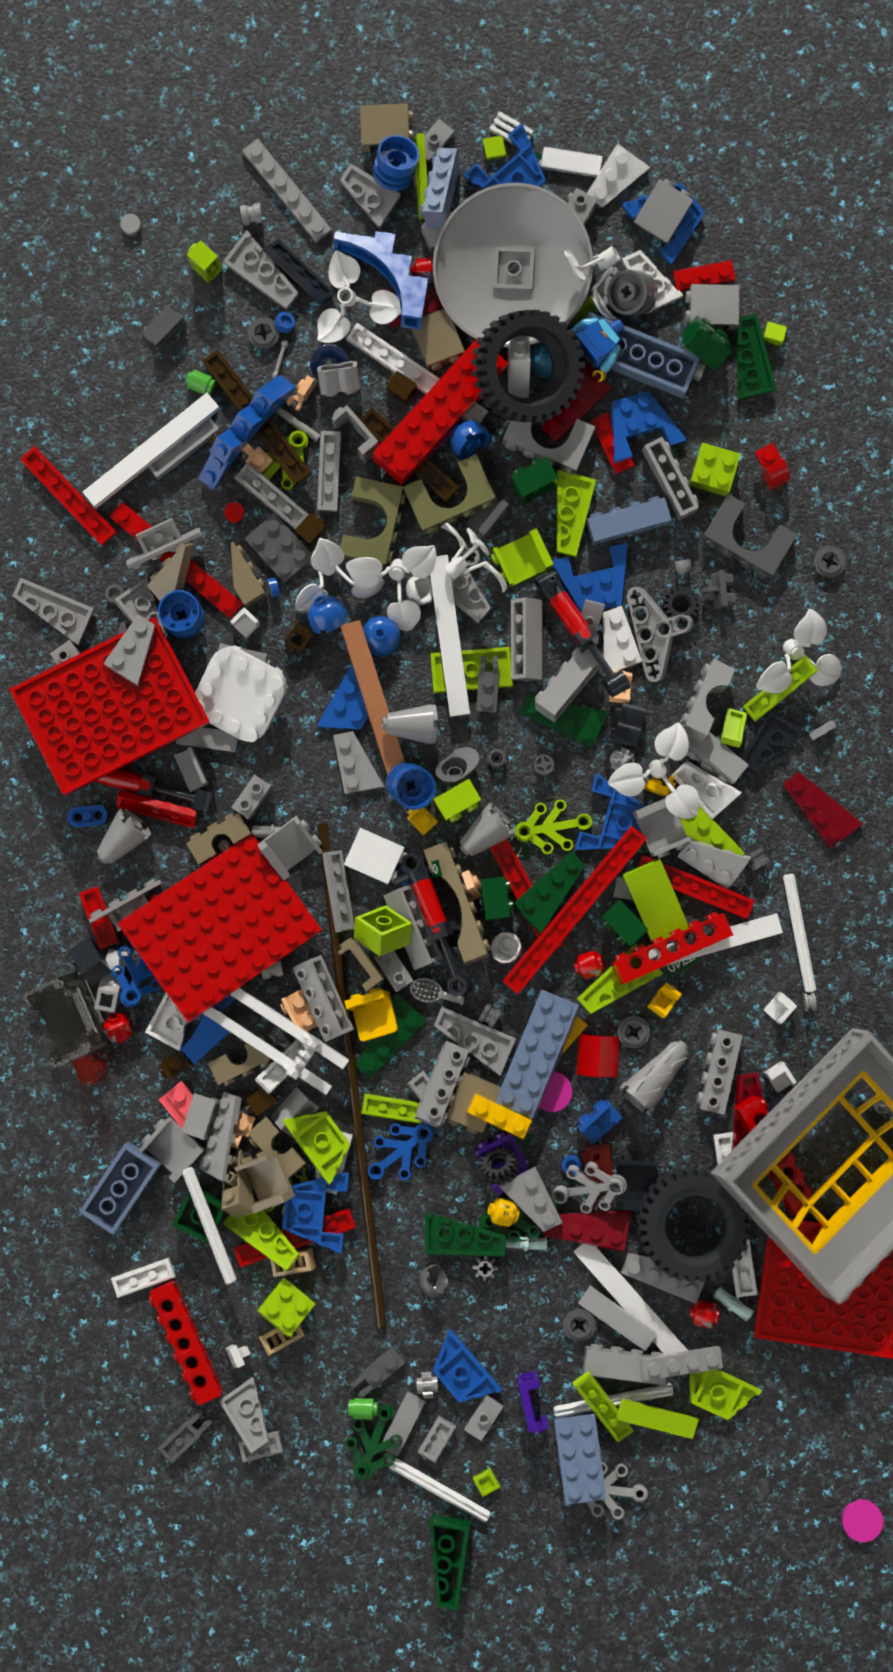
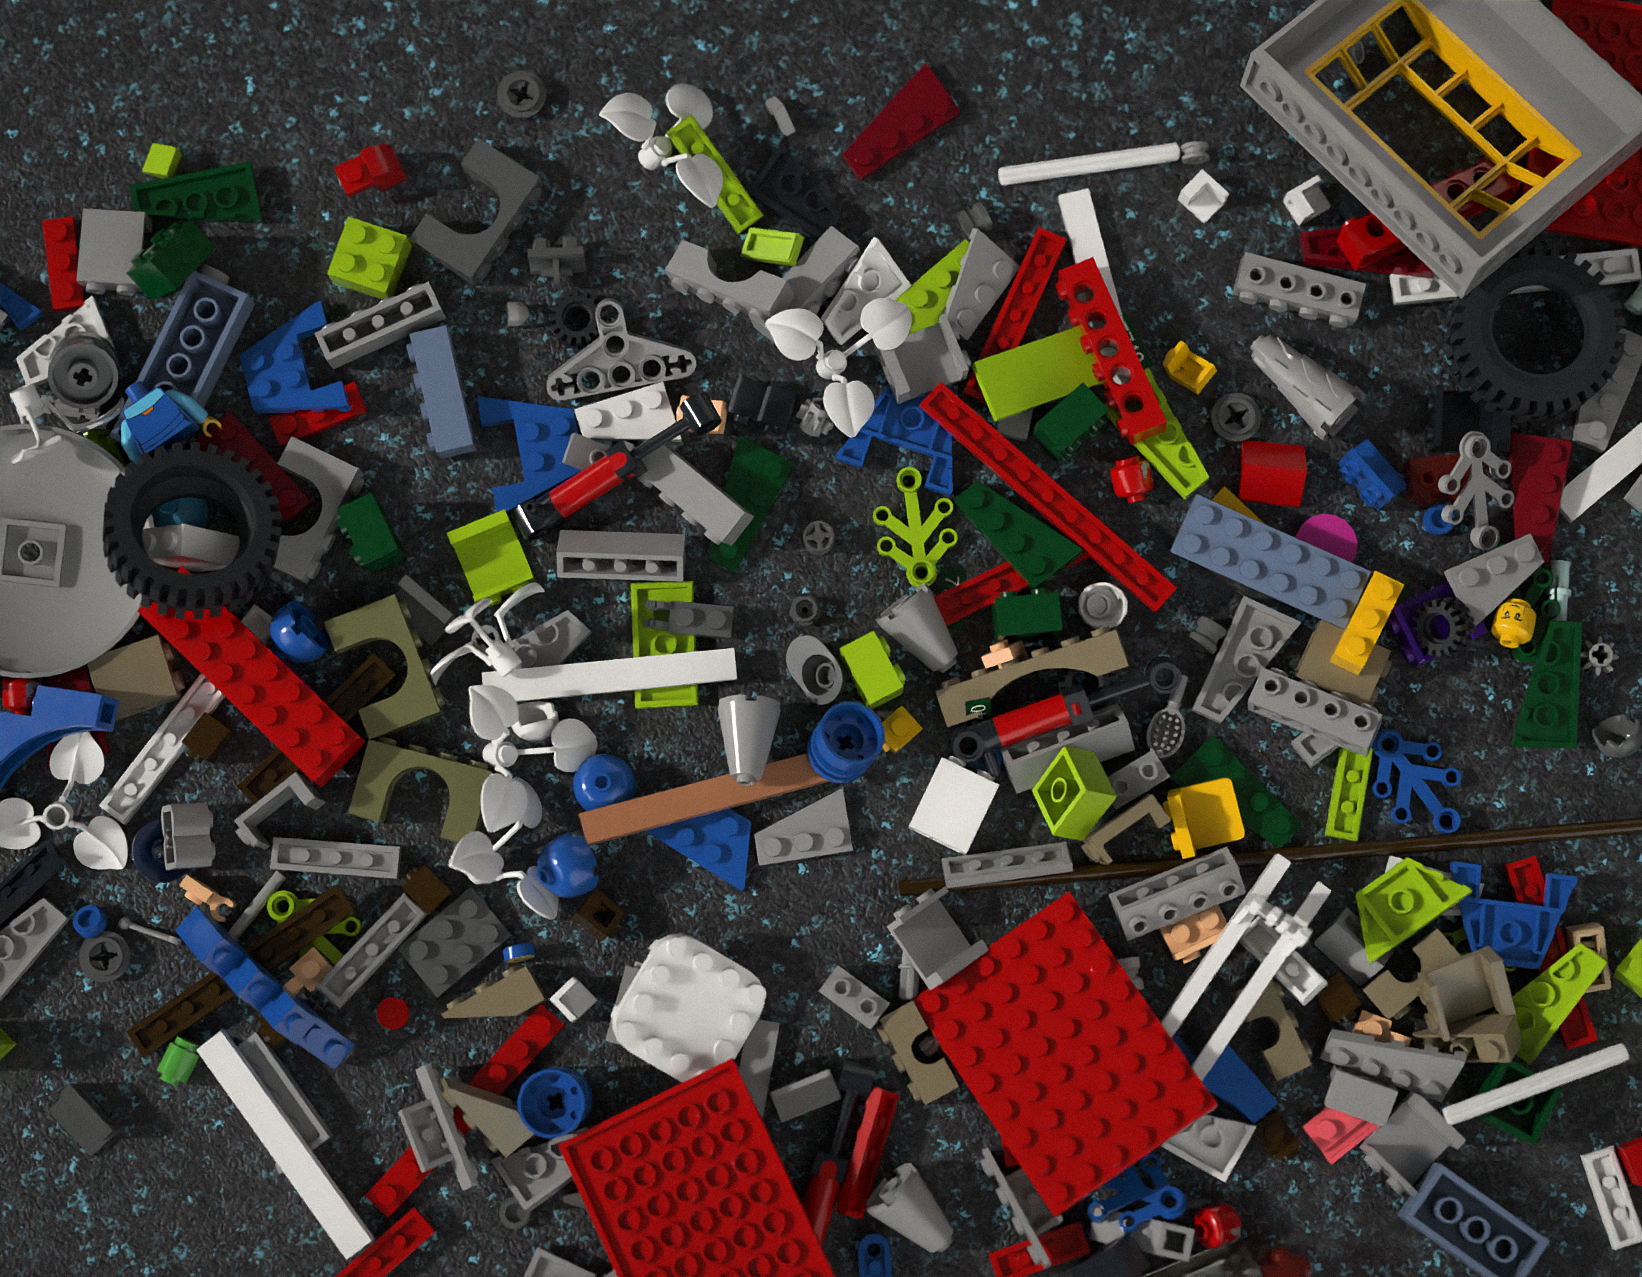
camera: 90 degrees left, 5 degrees down
(131, 651) = (612, 1182): light grey wing -> none
(573, 503) = (413, 477): lime wing -> none
(655, 786) = (859, 367): yellow bracket -> none

